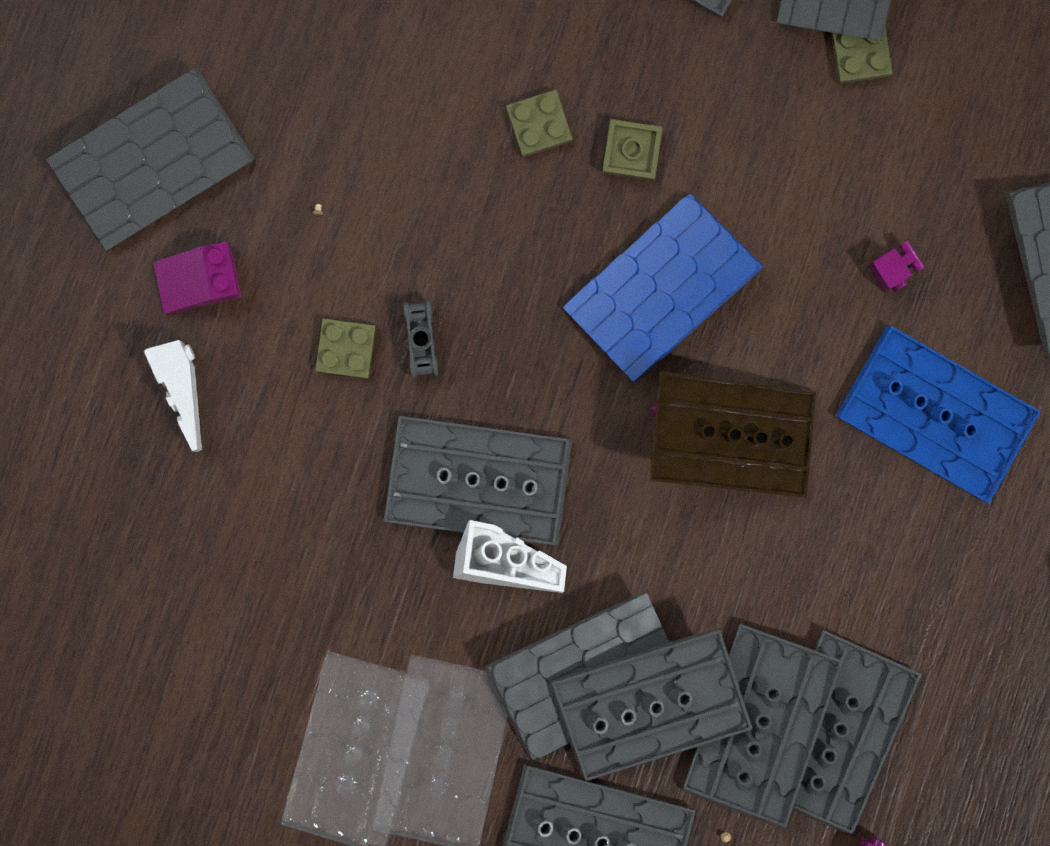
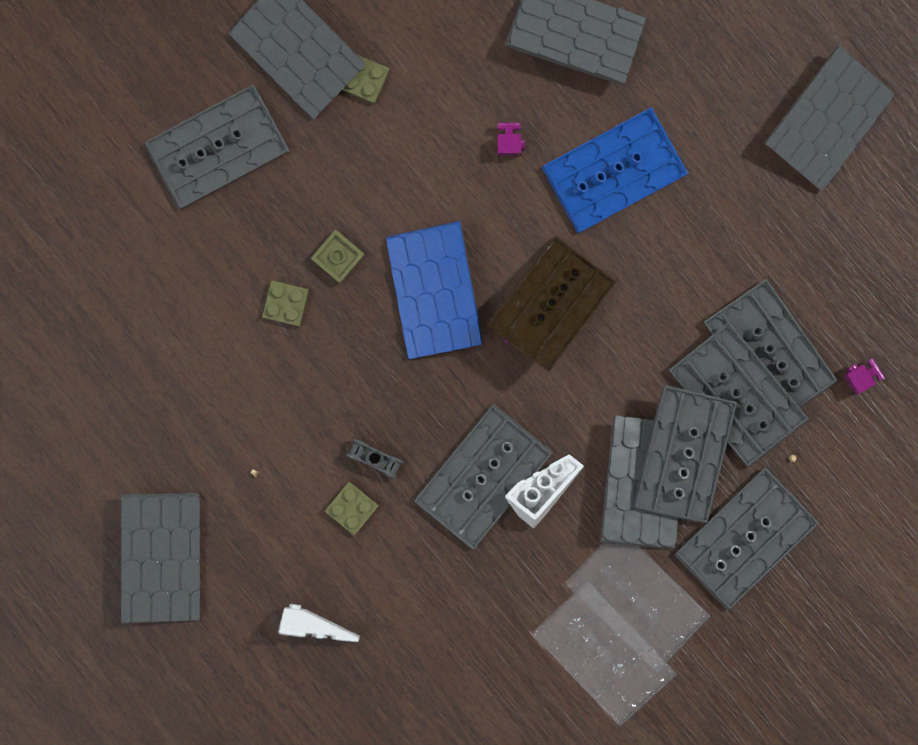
camera: 50 degrees left, 0 degrees up
(198, 278) = (252, 573): magenta slope -> none

